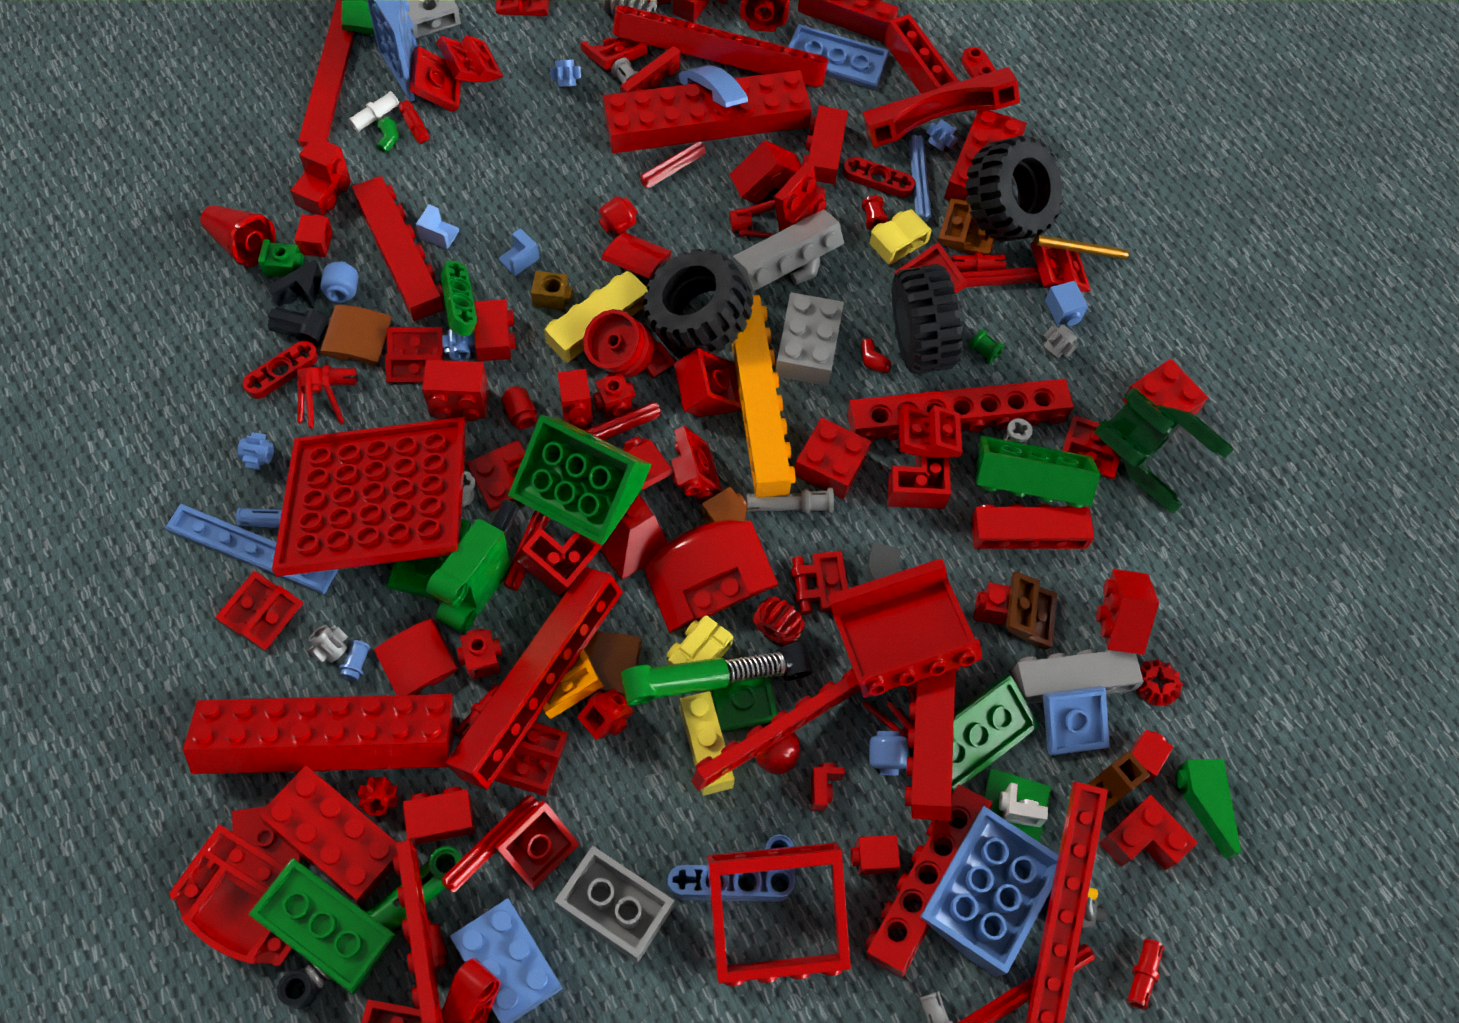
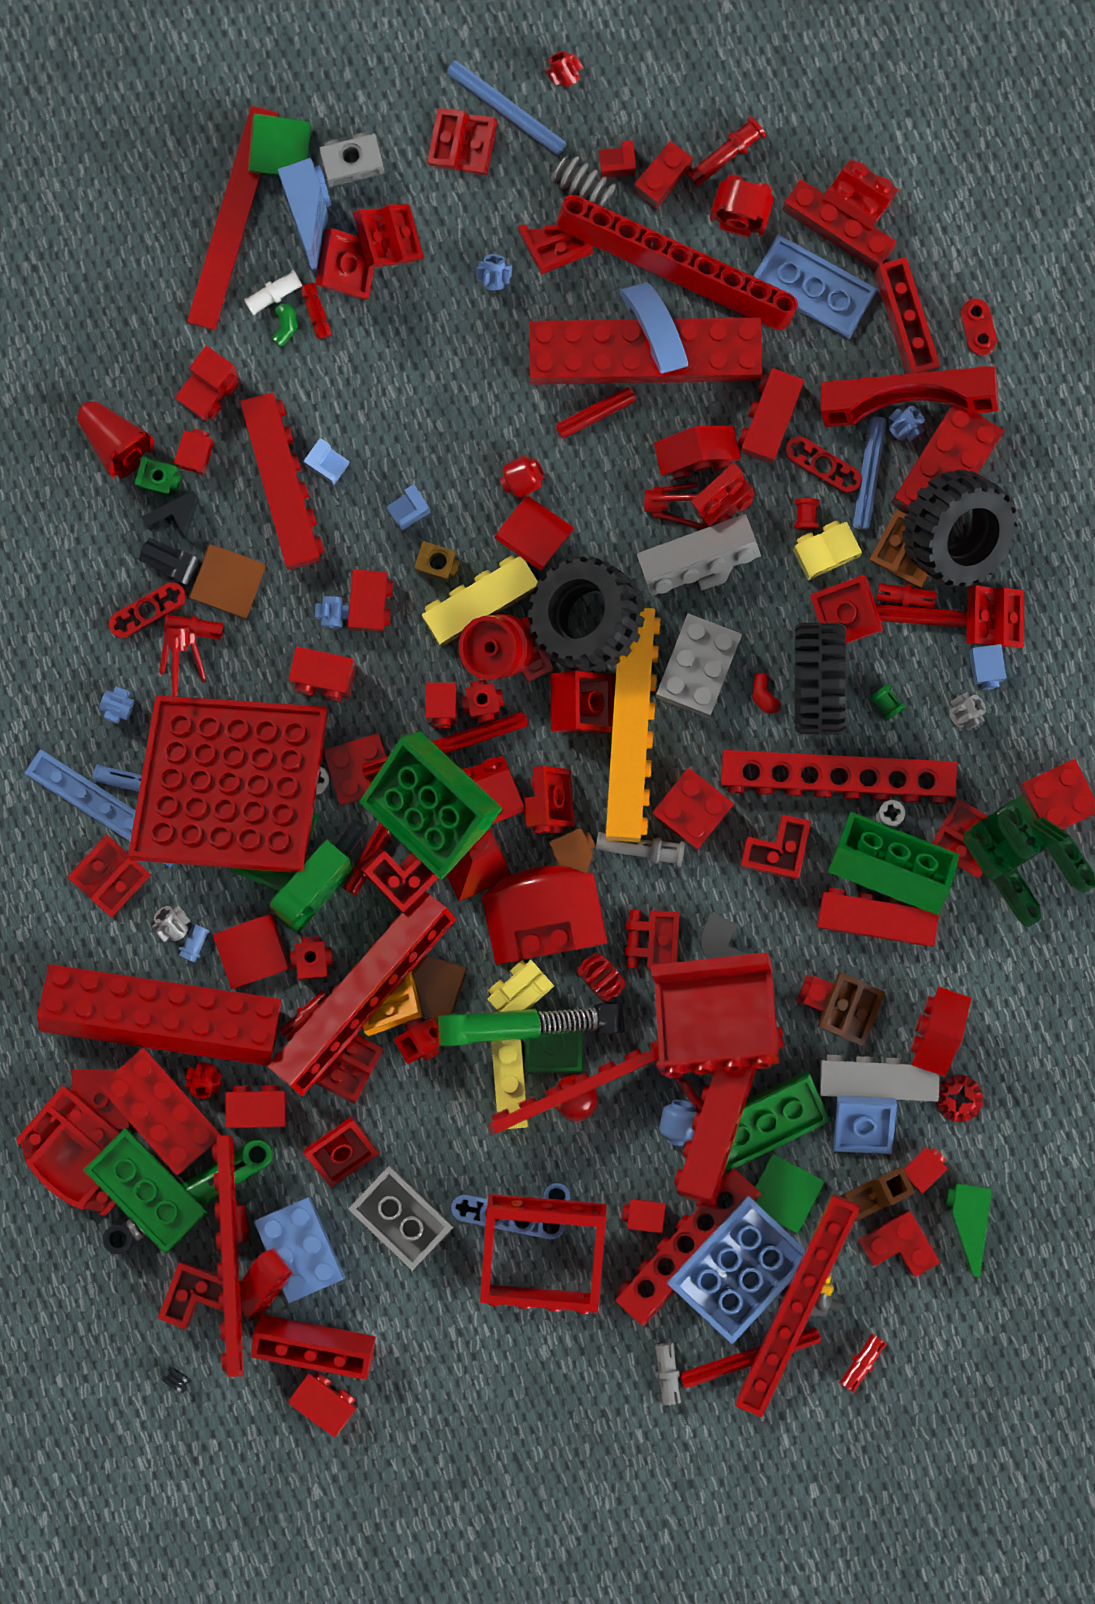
camera: 20 degrees right, 20 degrees up
(339, 282) = (216, 516): medium blue head -> none
(409, 350) = (285, 614): red slope -> none
(458, 292) = (335, 560): green beam -> none
(486, 846) = (299, 1143): red axle -> none
(519, 407) = (384, 696): red brick -> none
(626, 72) = (563, 281): light grey bush -> none
(654, 73) = (591, 290): red plate -> none
(821, 790) = (607, 1146): red bracket -> none
(930, 433) = (794, 807): red slope -> none
(1022, 812) = (791, 1203): white bracket -> none
(1082, 247) = (1022, 599): pearl gold bar -> none

